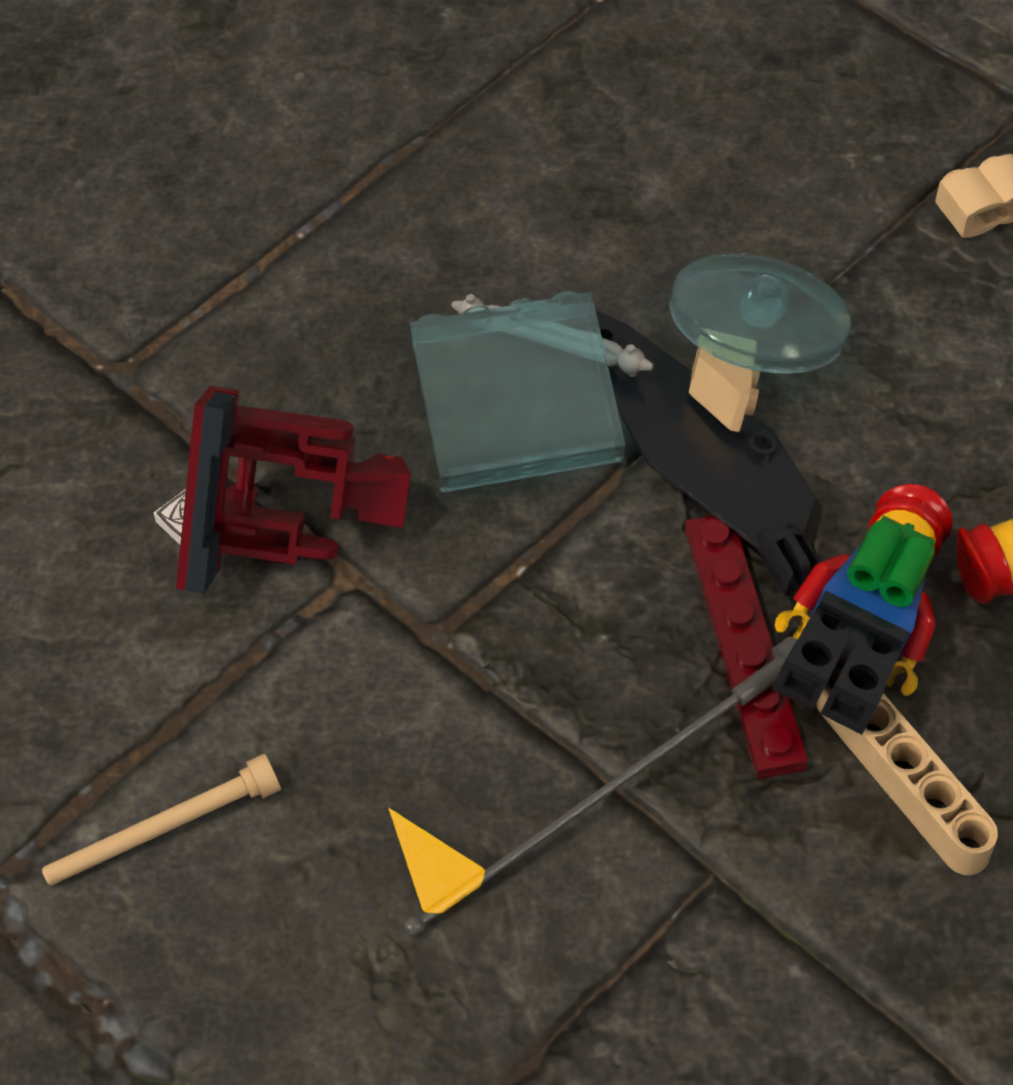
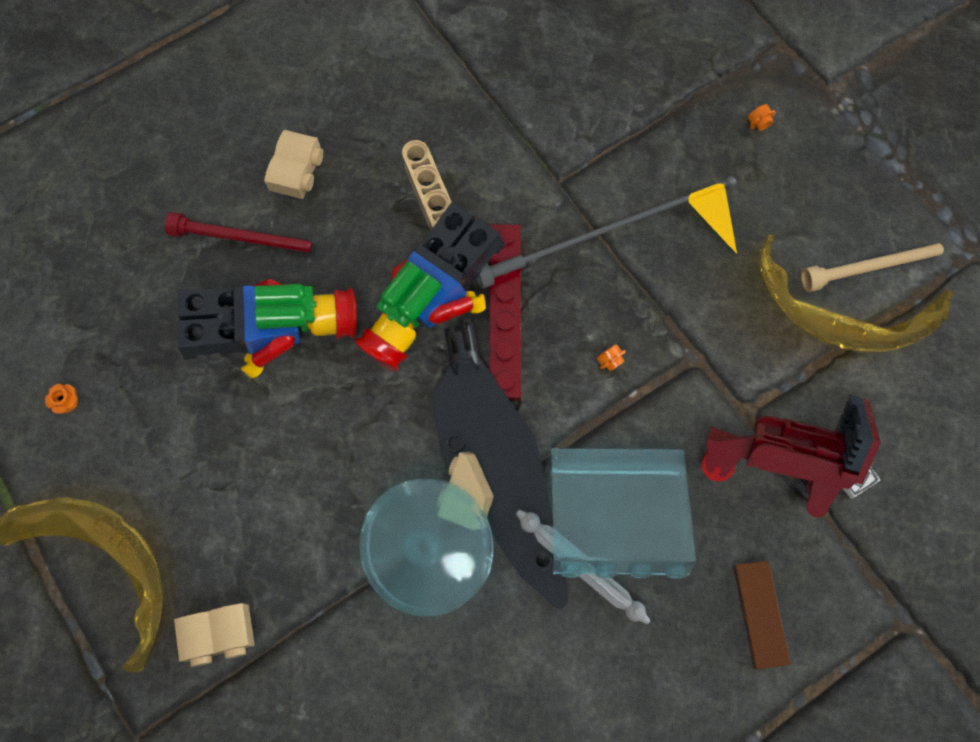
camera: 170 degrees left, 15 degrees up
(206, 691) = (843, 330): none -> clear yellow windscreen
(308, 342) = (761, 615): none -> reddish brown tile
(372, 1054) = (761, 117): none -> orange plate
(565, 599) = (611, 358): none -> orange plate

